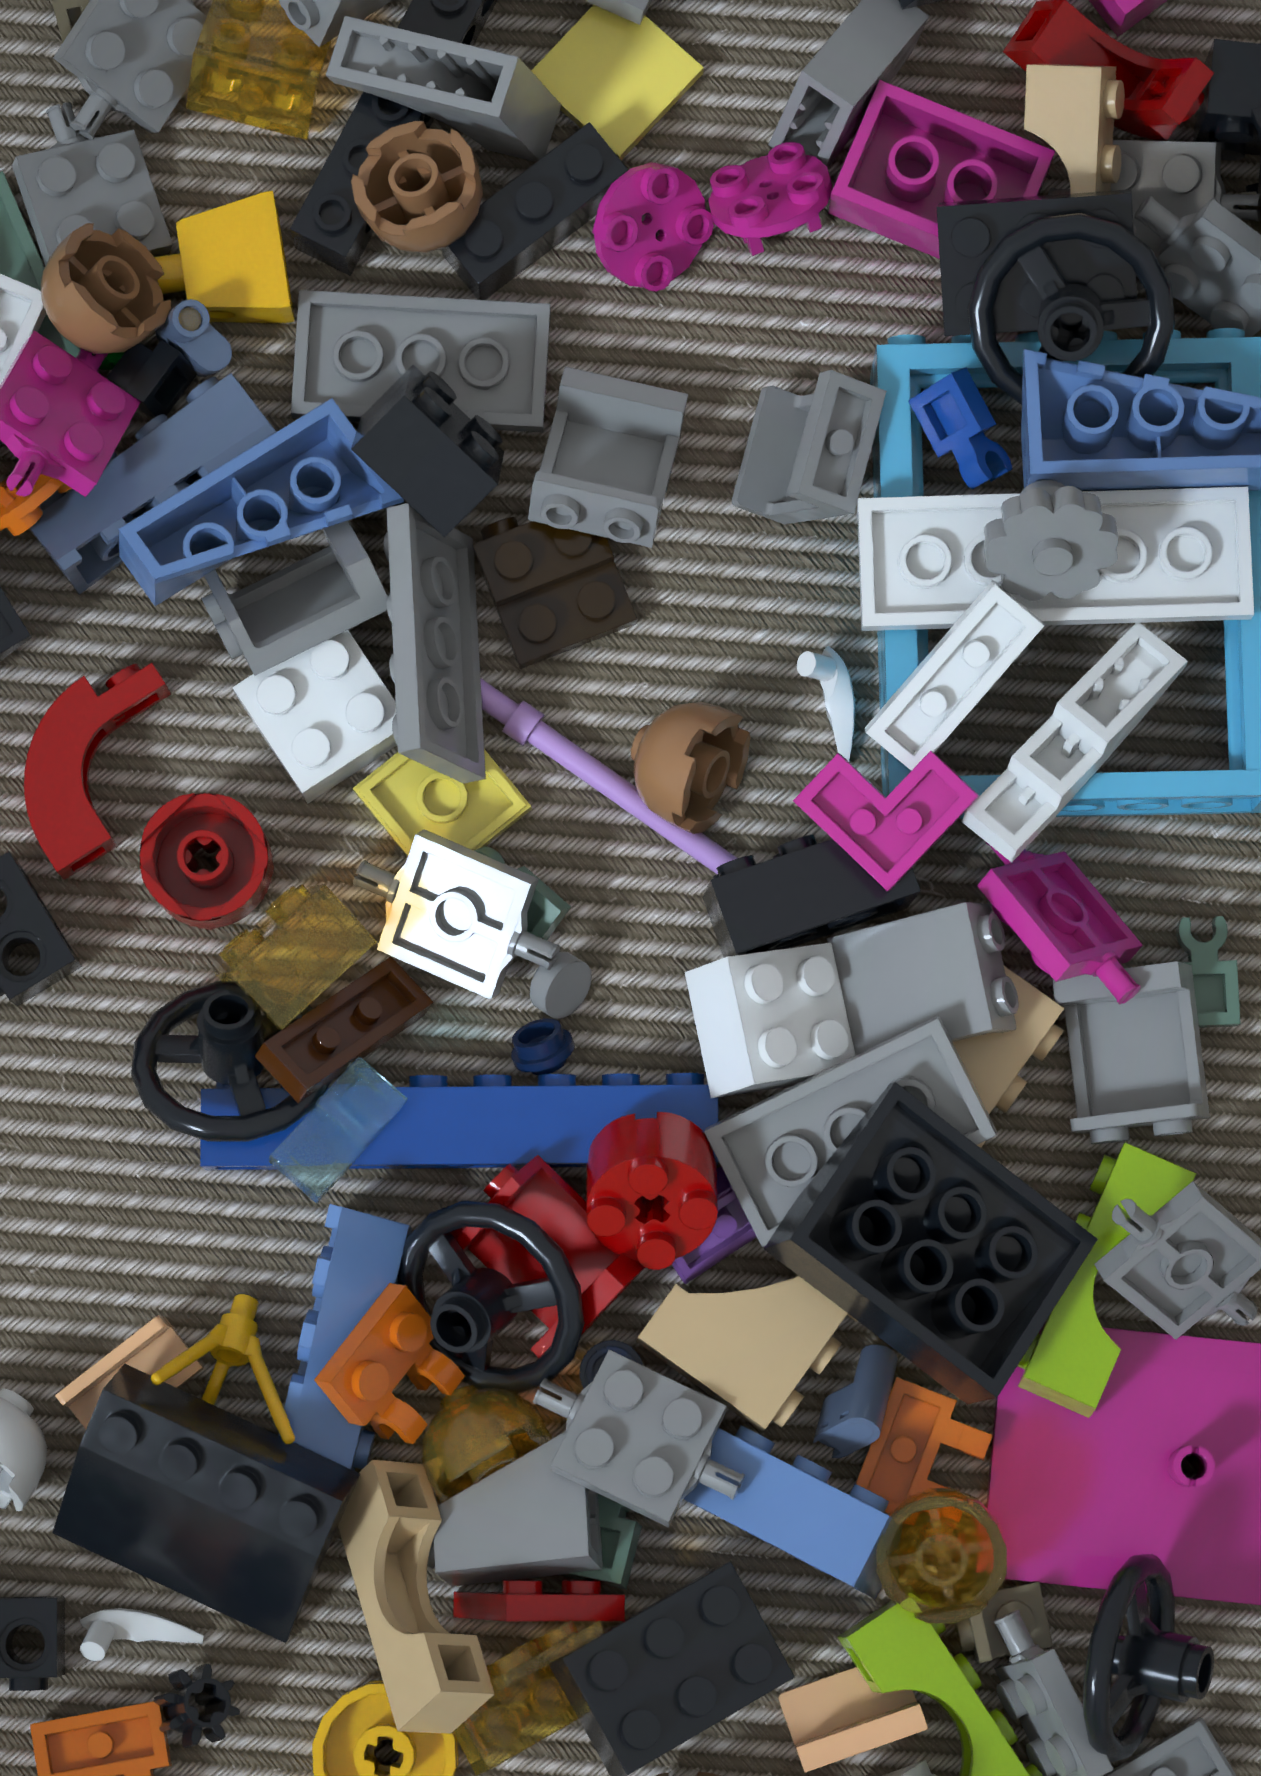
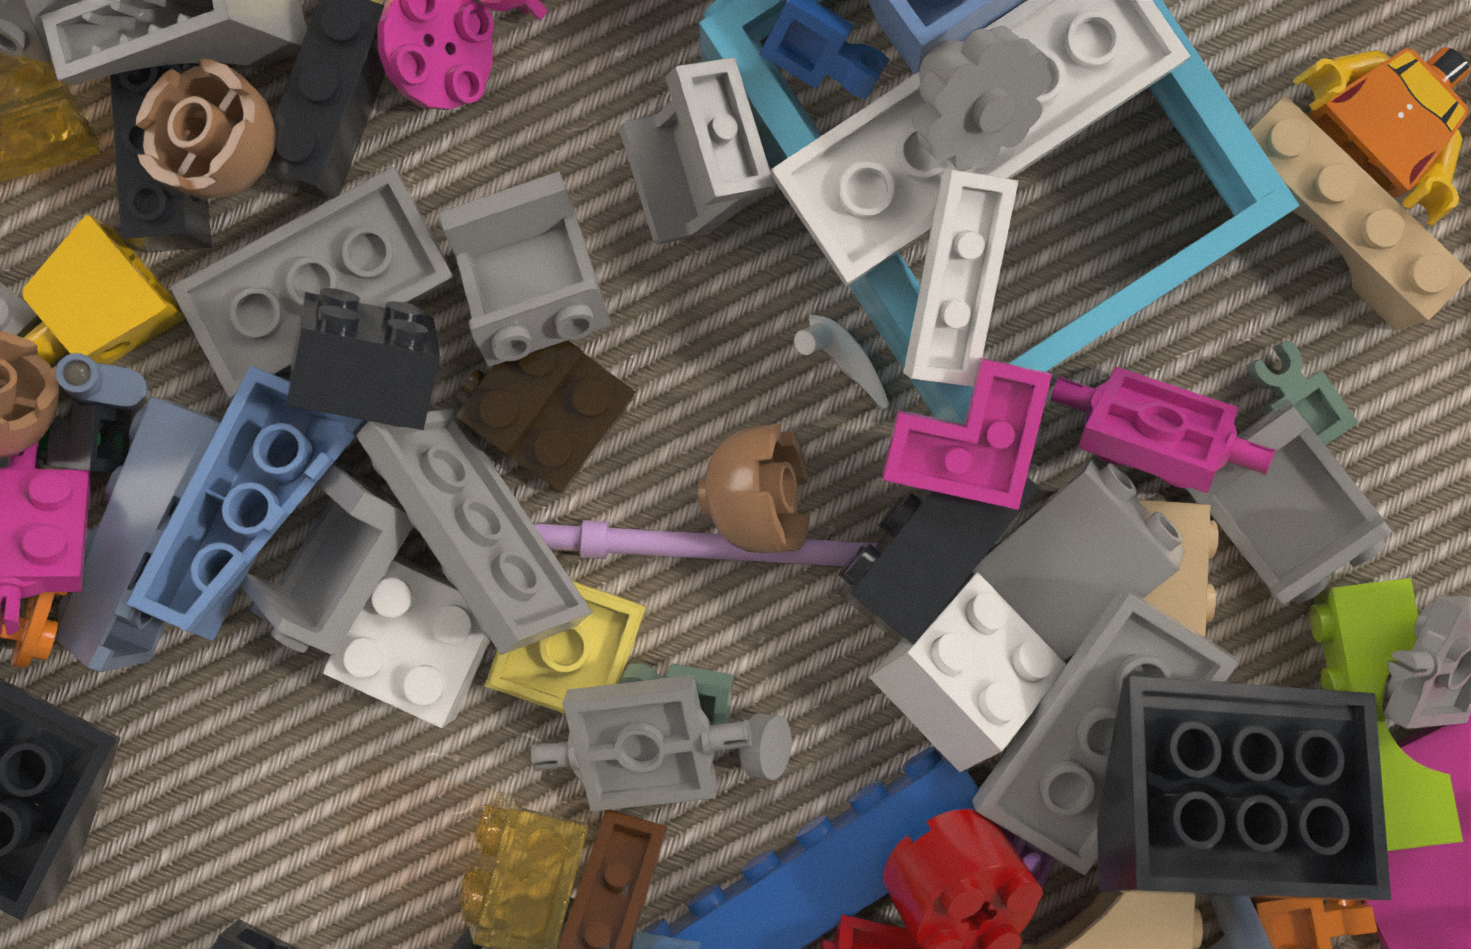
camera: 35 degrees left, 5 degrees up
(61, 762) = (218, 821): red arch -> none
(211, 824) = (364, 849): red brick -> none
(541, 1047) = (782, 808): dark blue plate -> none
(1074, 741) = (1098, 269): white slope -> none

